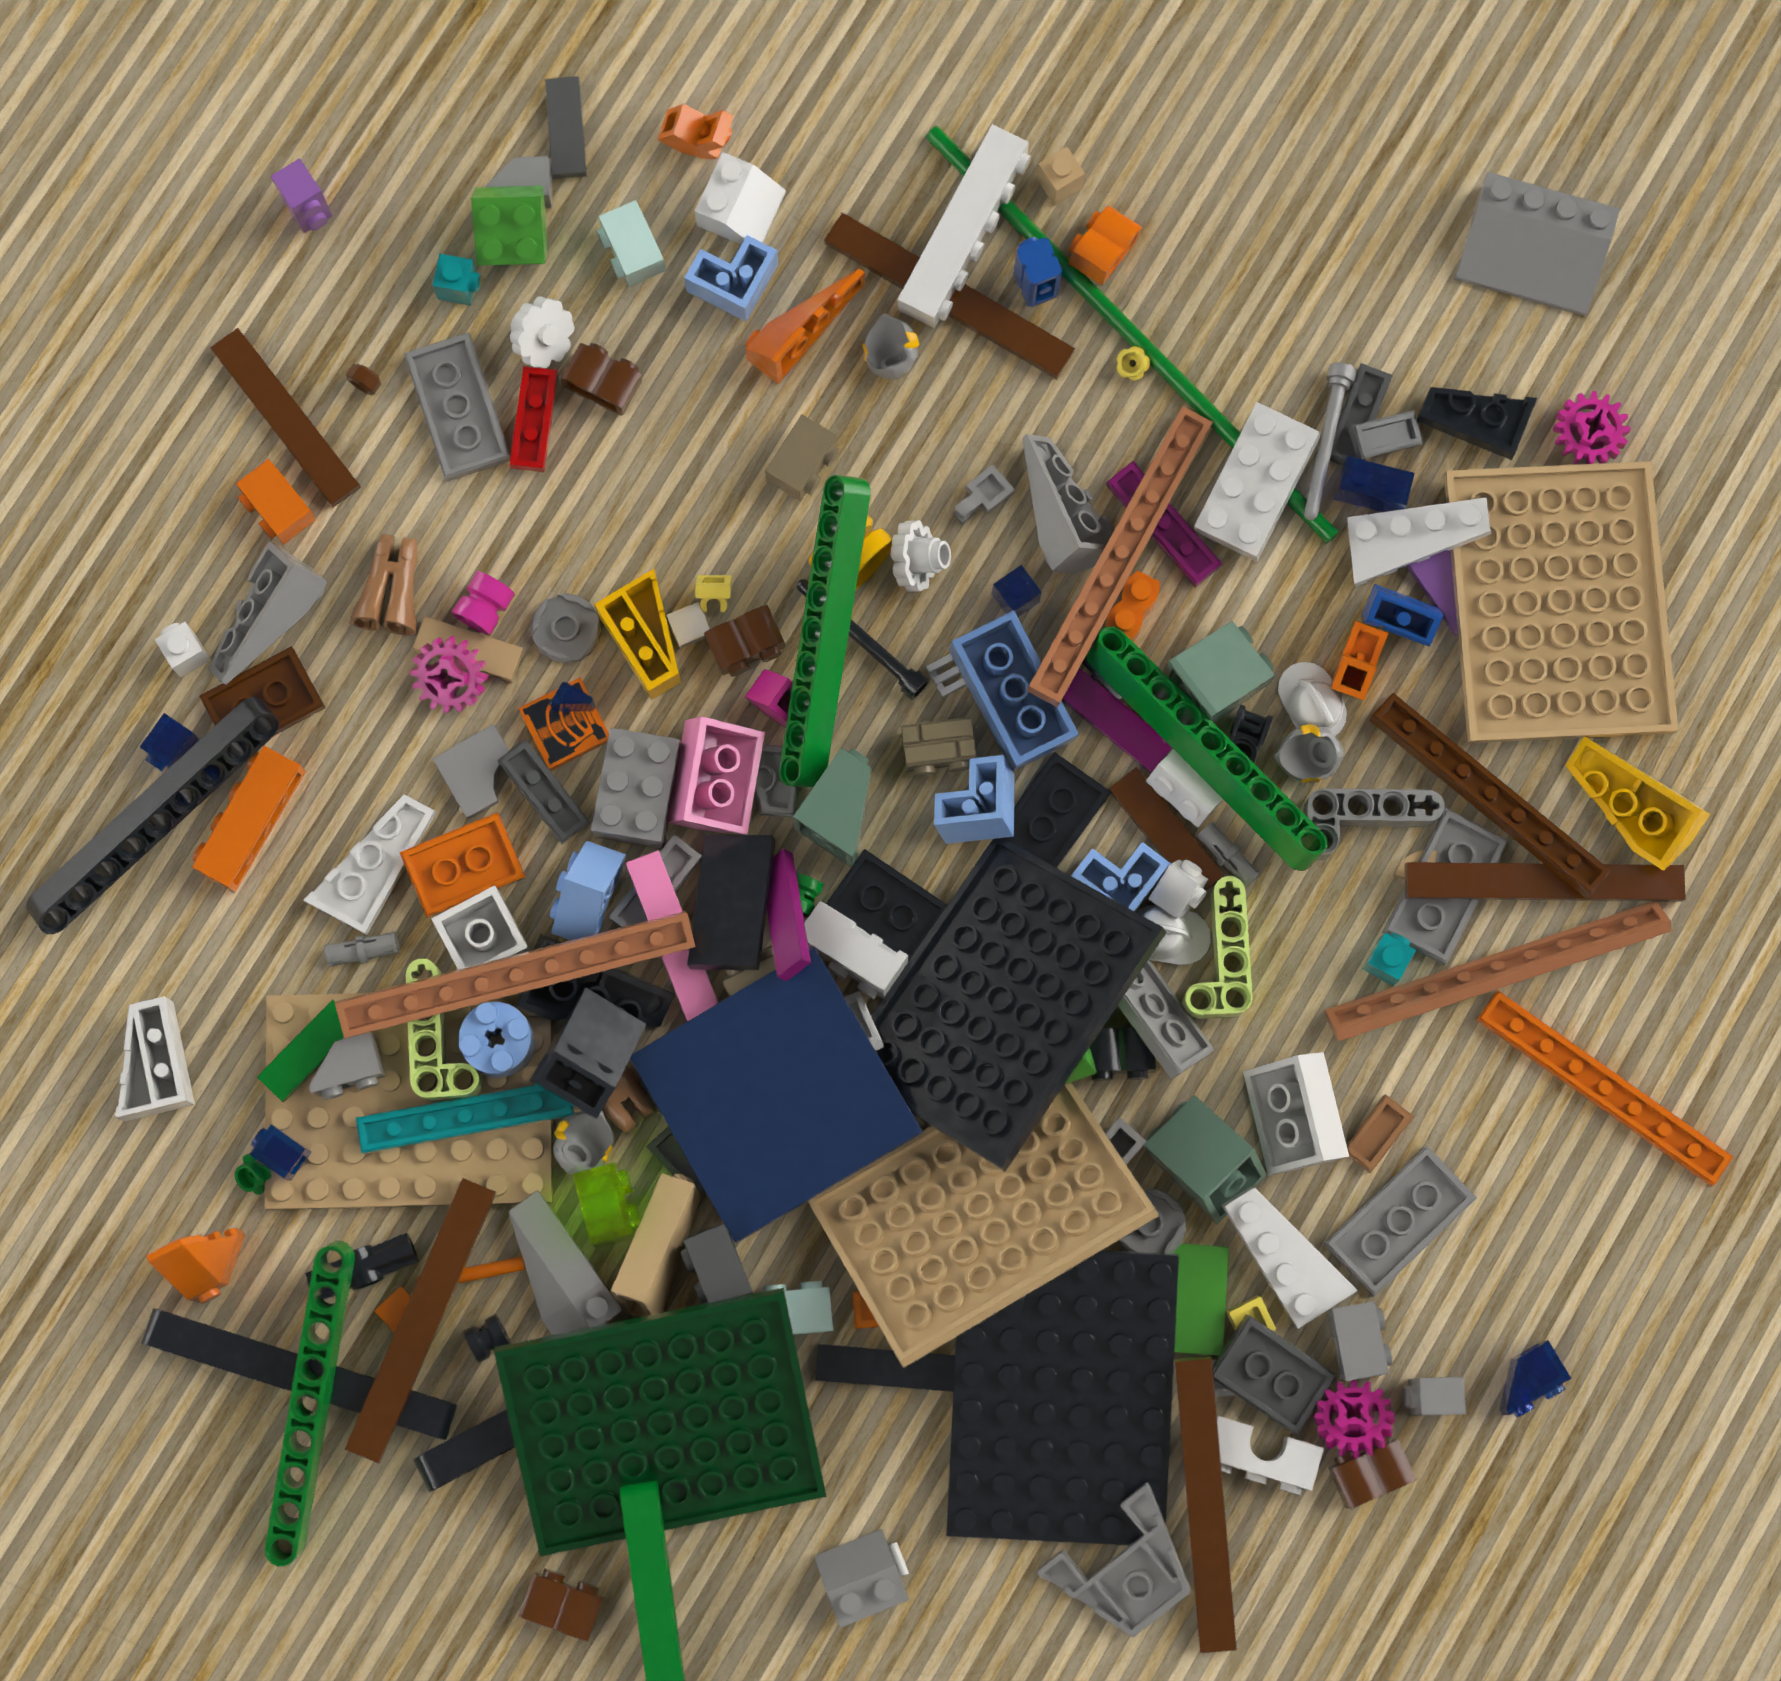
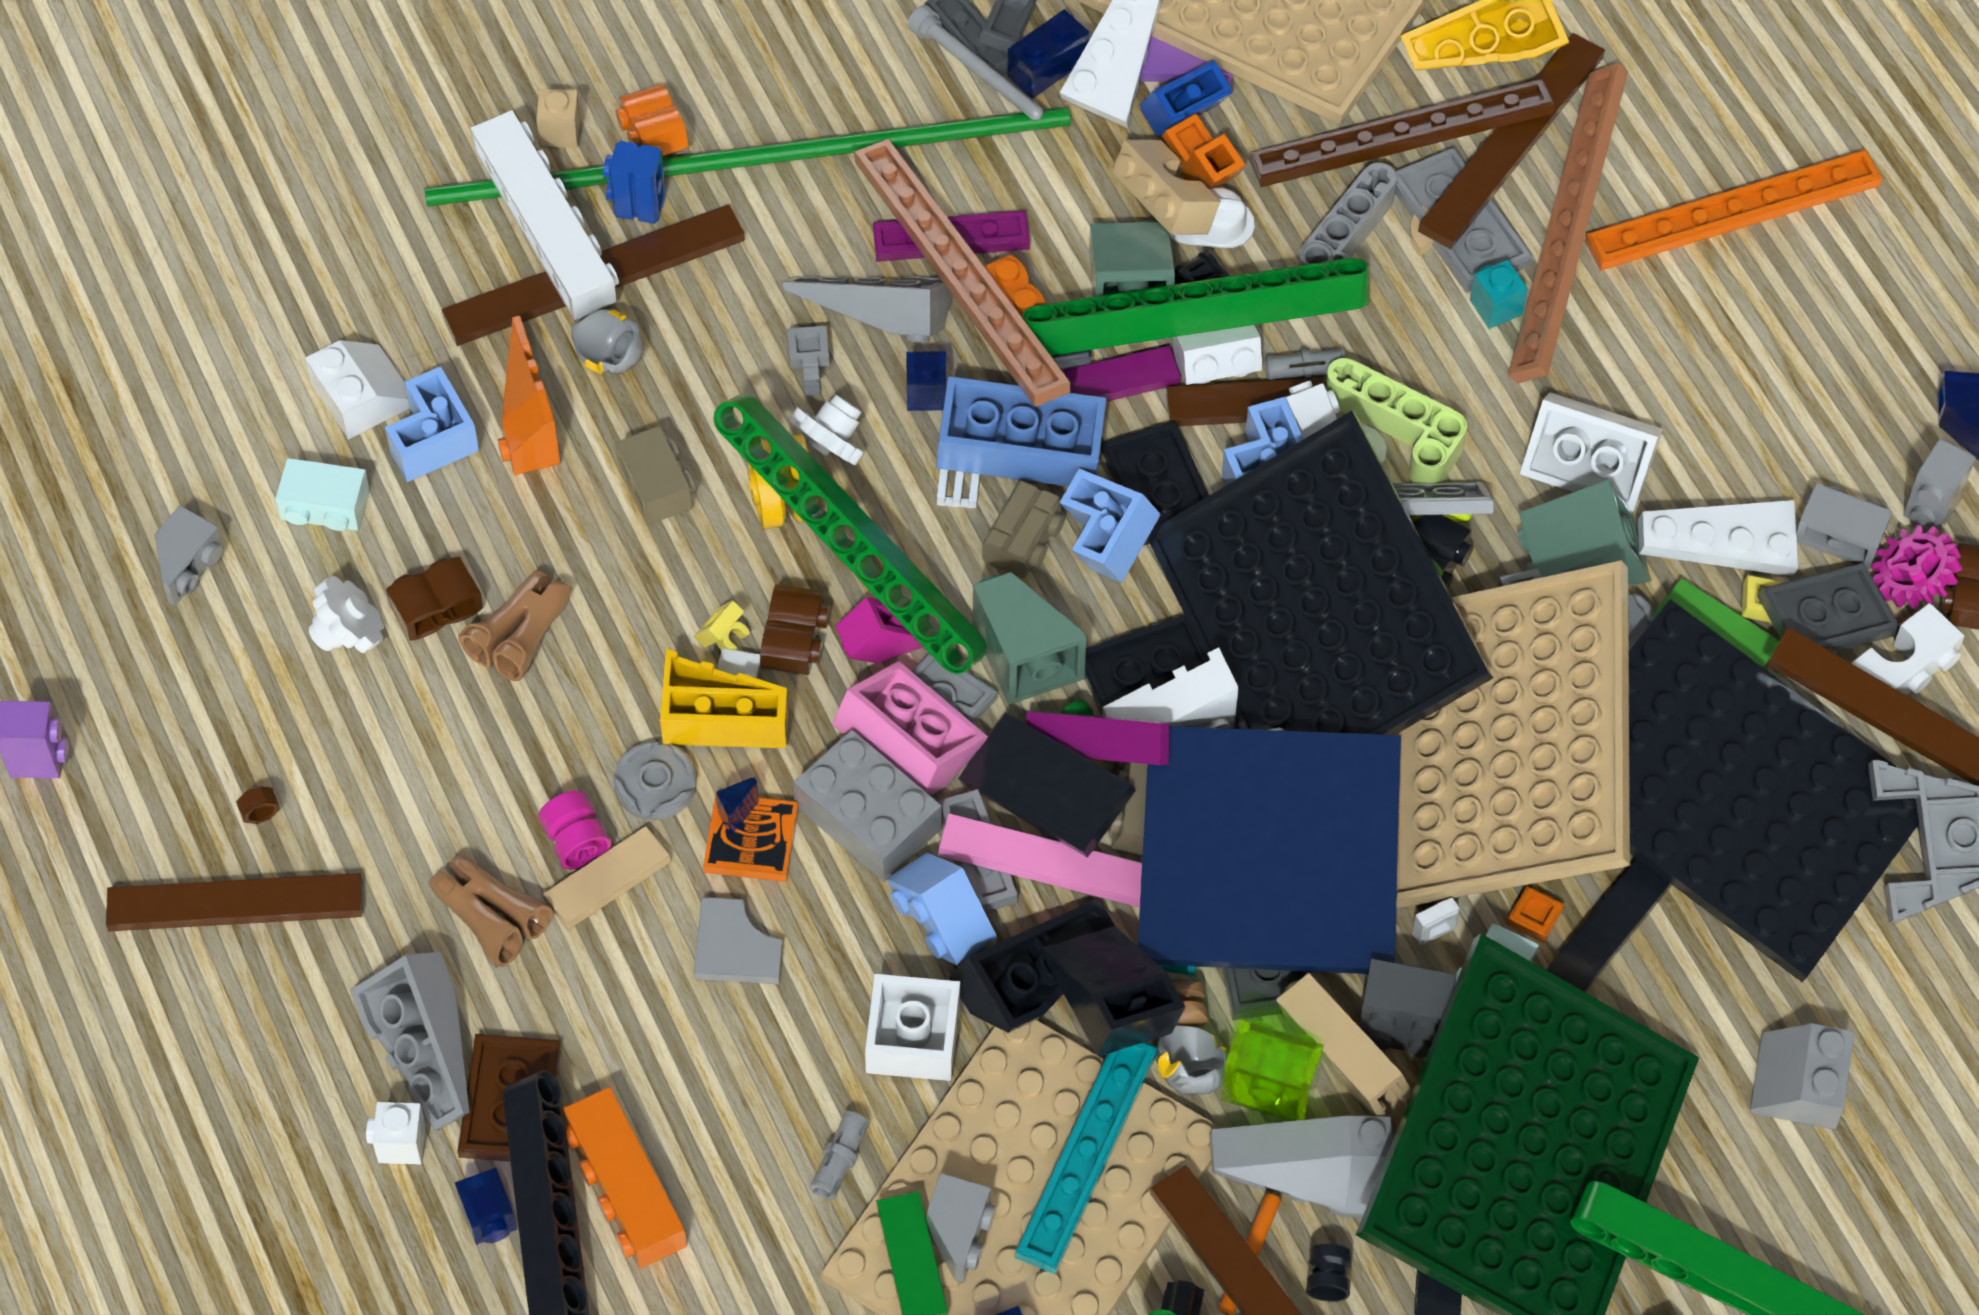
camera: 55 degrees left, 20 degrees down
(275, 501) = (316, 957): orange brick -> none
(371, 870) = (765, 1098): white wing -> none
(435, 1063) = (983, 1121): yellowish green beam -> none
(456, 279) = (229, 662): teal brick -> none
(457, 407) = (353, 743): light grey tile -> none
(460, 665) = (635, 914): dark pink gear -> none
(462, 864) = (824, 1008): orange tile -> none
(490, 1020) = (1013, 1066): light blue brick -> none
(509, 225) = (219, 576): bright green brick -> none
(514, 974) = (981, 1003): nougat plate -> none
(533, 419) = (424, 681): red plate -> none
(543, 791) = (805, 893): dark grey tile -> none
(566, 127) = (154, 484): dark grey tile -> none
(639, 450) = (517, 627): none -> medium nougat piece
(695, 132) = (264, 379): orange brick -> none
(811, 1243) = (1435, 921): none -> white tile
(911, 681) = (941, 518): black piece -> none
(1127, 355) = (784, 160): light yellow plate -> none
(1257, 481) = (975, 131): white brick -> none
(1290, 675) = (1149, 174): none -> tan arch
(1310, 753) = (1260, 240): light grey hair -> none
(1378, 1133) = (1654, 400): medium nougat tile -> none
(1400, 1221) = (1749, 433): light grey tile -> none

